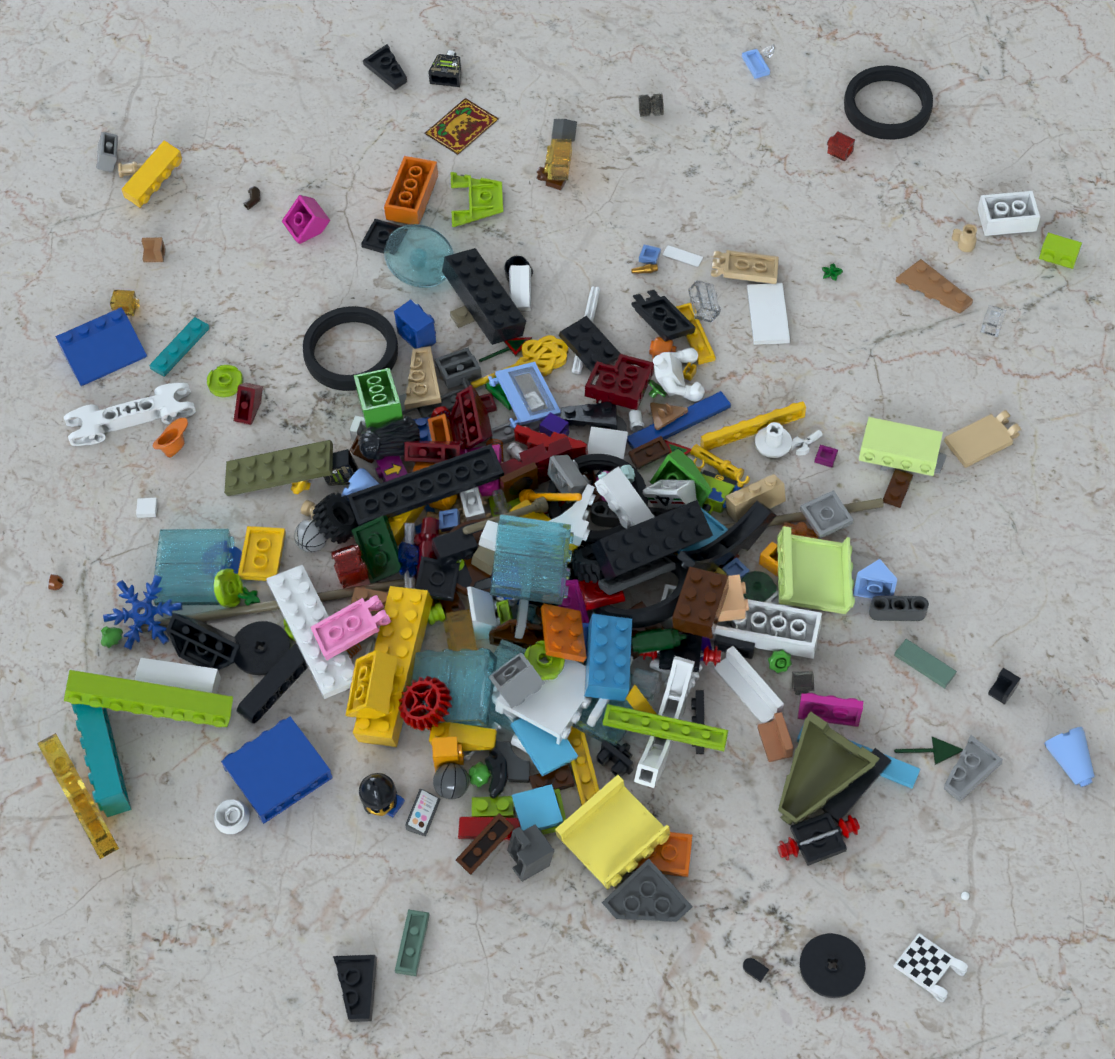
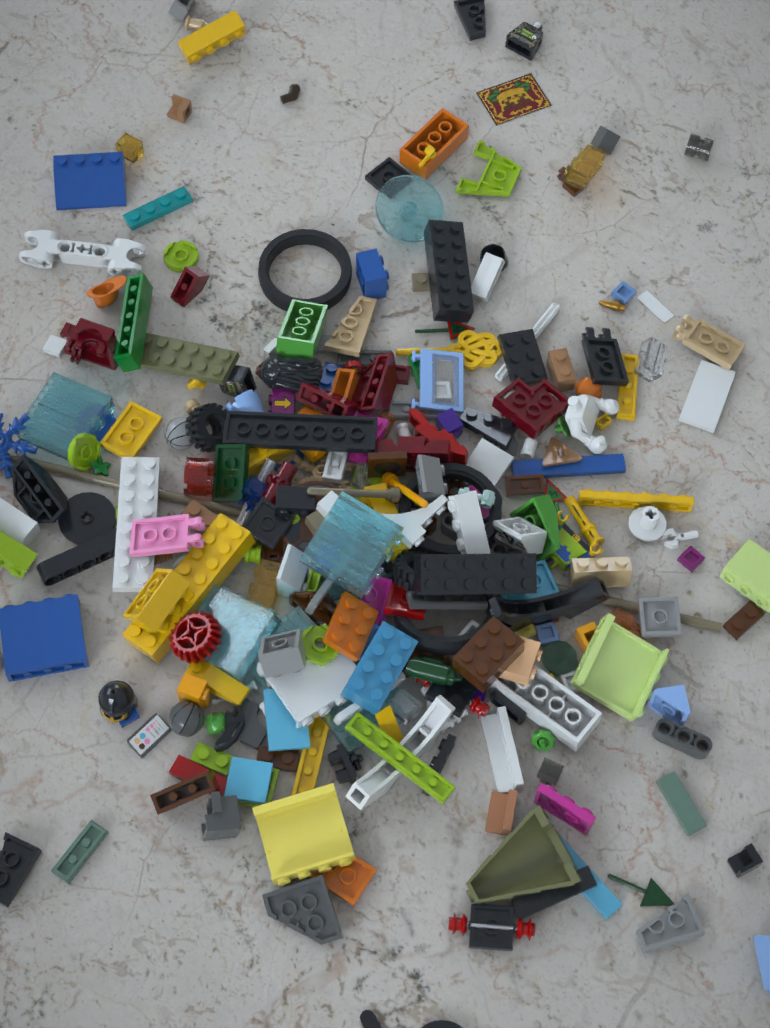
camera: 20 degrees right, 5 degrees up
(184, 488) = (90, 343): none -> dark red piece
(215, 455) = (133, 323): none -> green brick
(305, 219) = (326, 133): dark pink slope -> none
(415, 199) = (430, 154): none -> yellow hand
(448, 519) = (307, 472): medium blue plate -> none
(458, 368) = (391, 330): dark grey plate -> none
(629, 340) = (561, 370): none -> medium nougat brick

